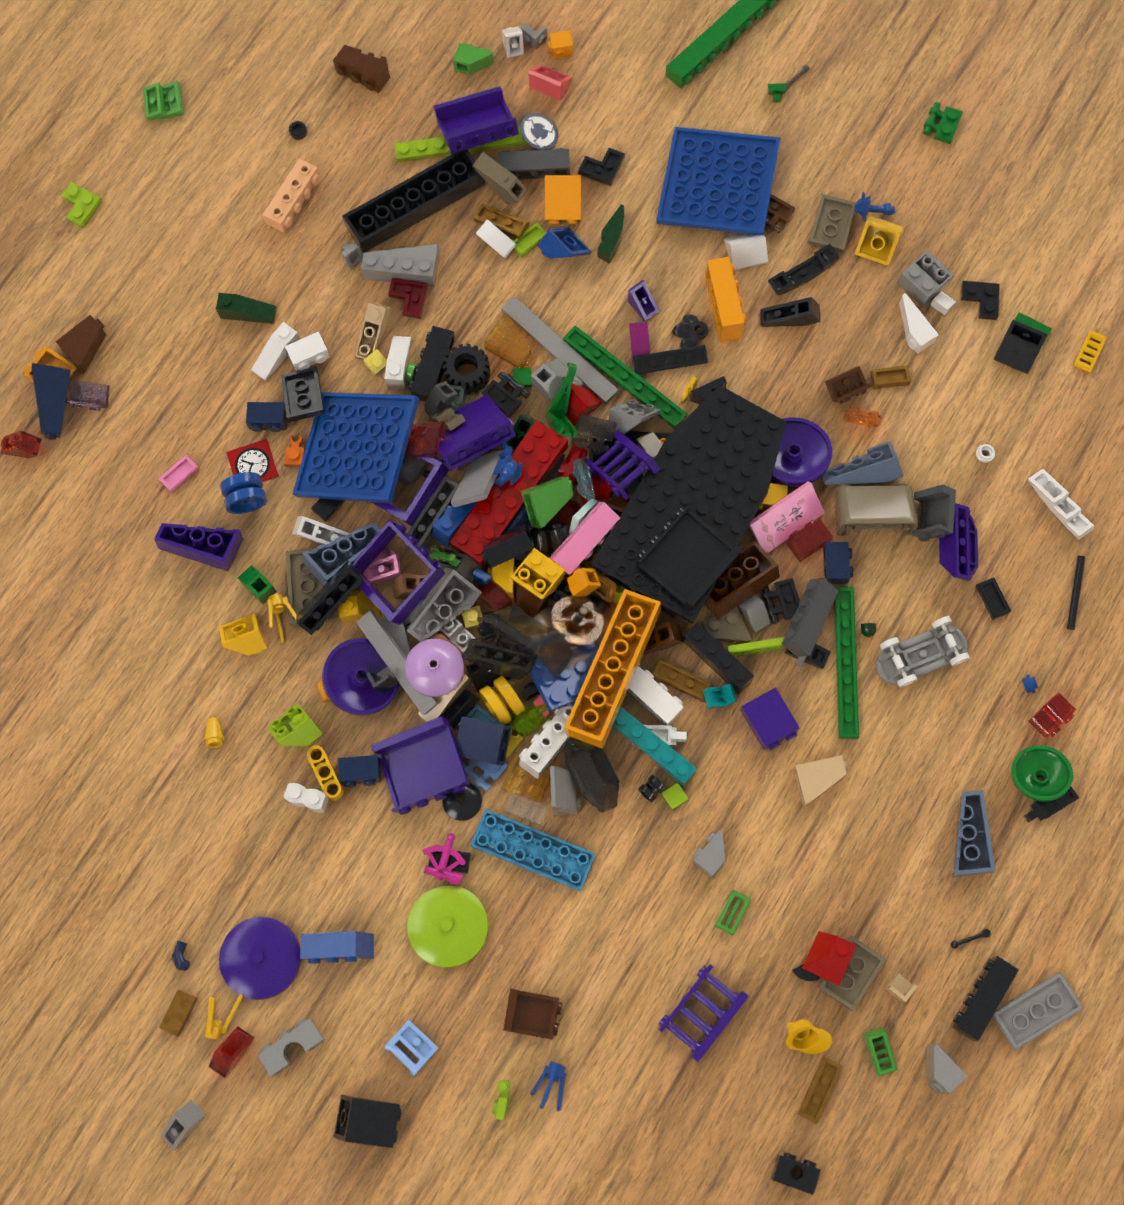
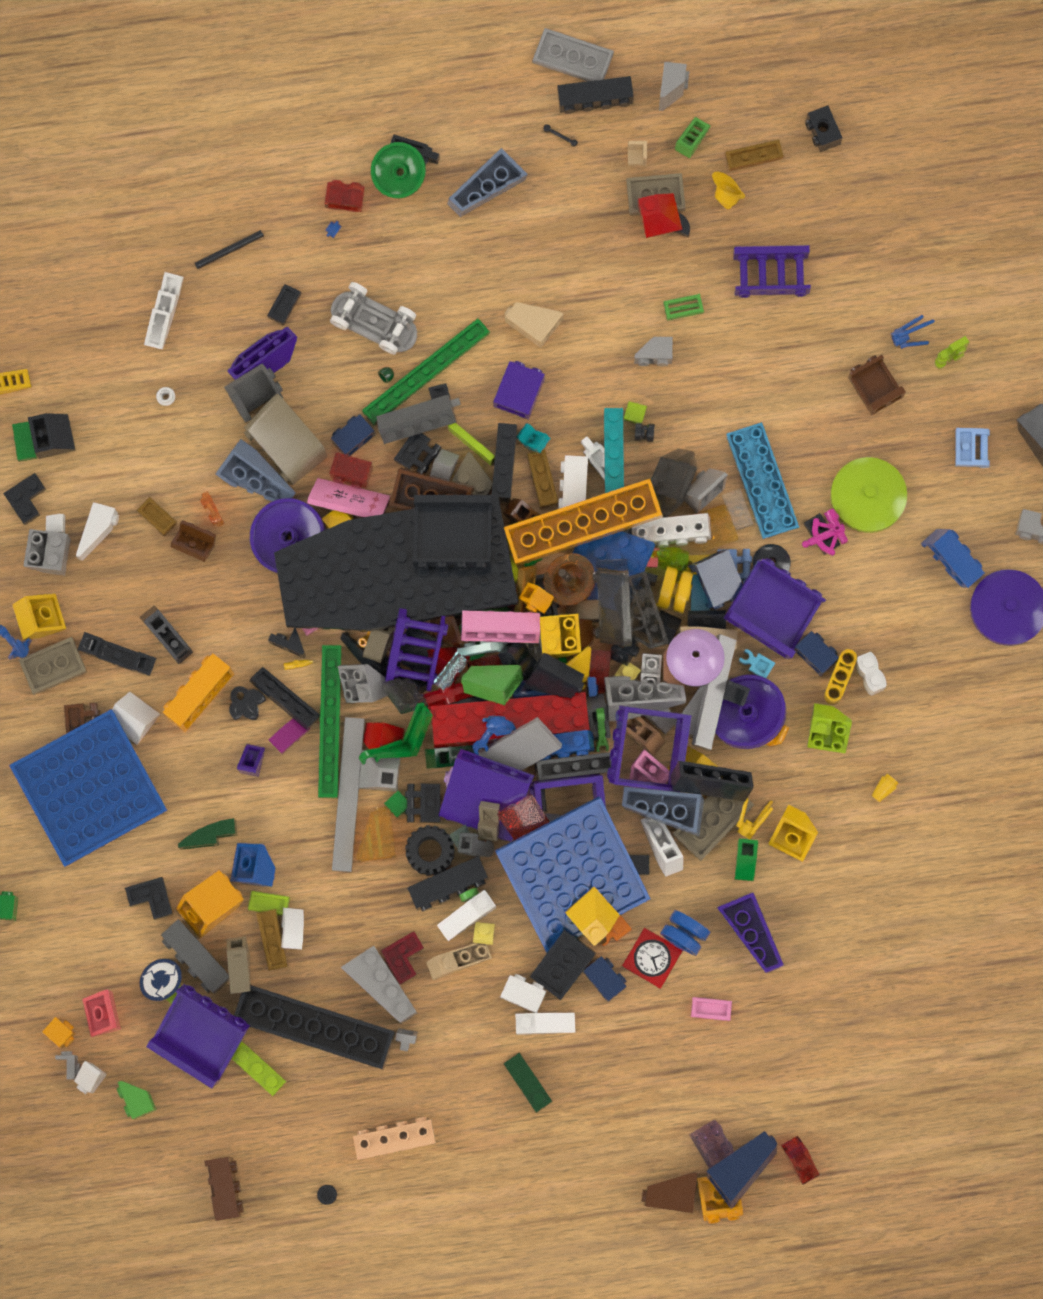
camera: 130 degrees left, 5 degrees up
(314, 438) = (593, 915): none -> yellow slope
(389, 720) = (760, 665): none -> medium azure plate

